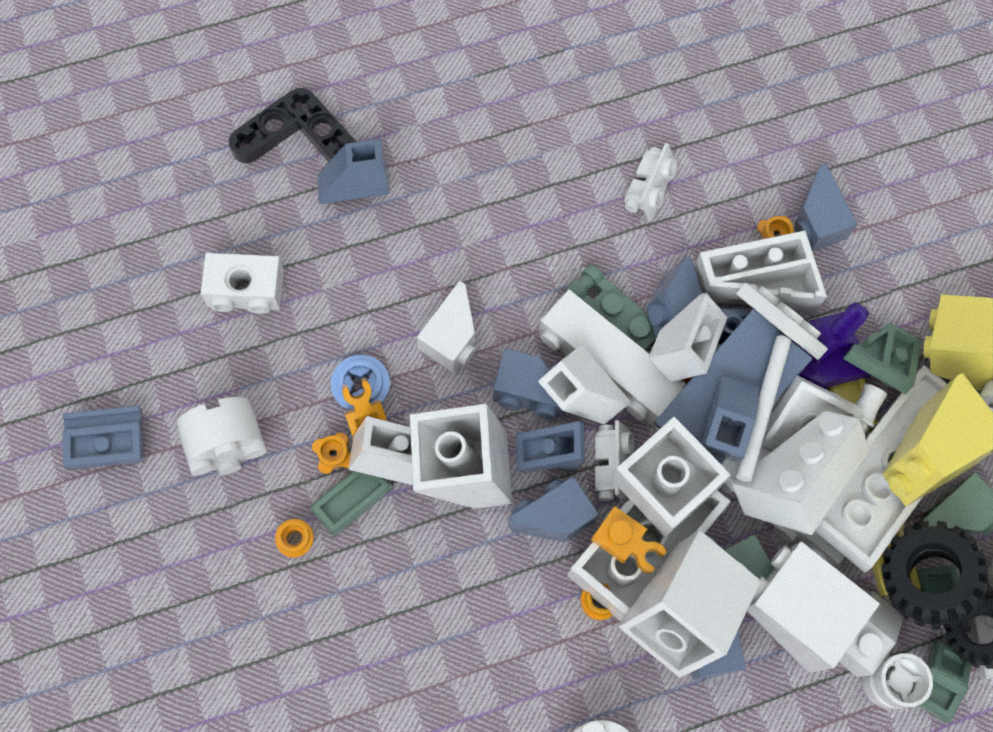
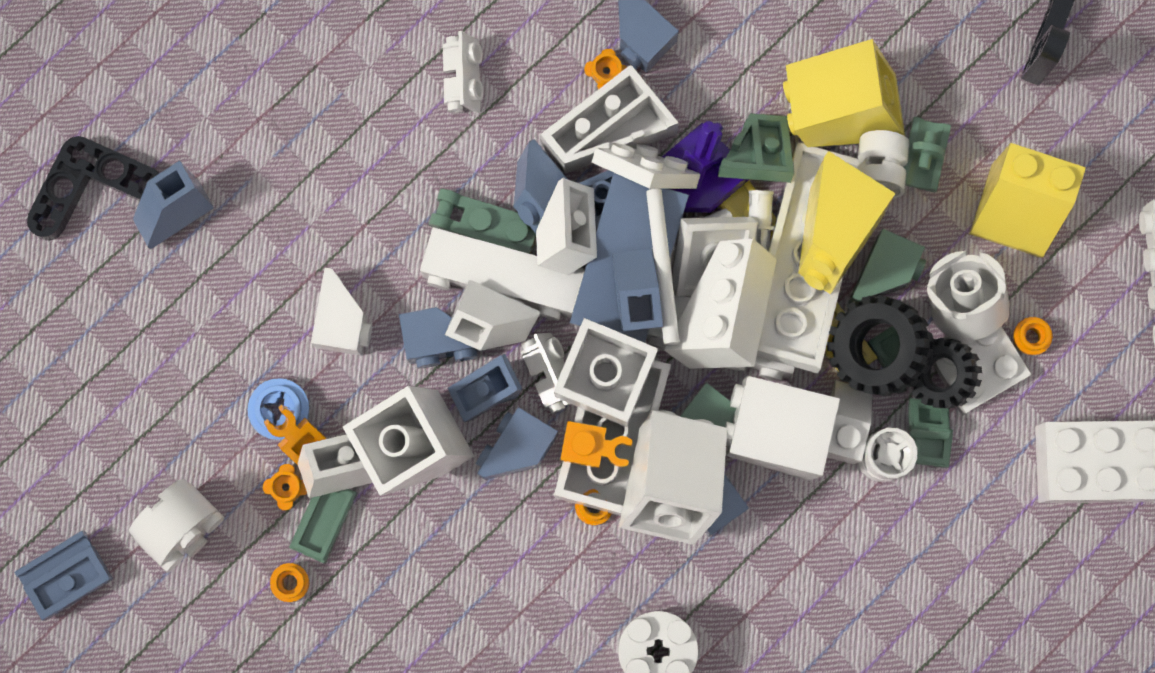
camera: 20 degrees left, 10 degrees up
(225, 271) = (94, 364): white brick -> none

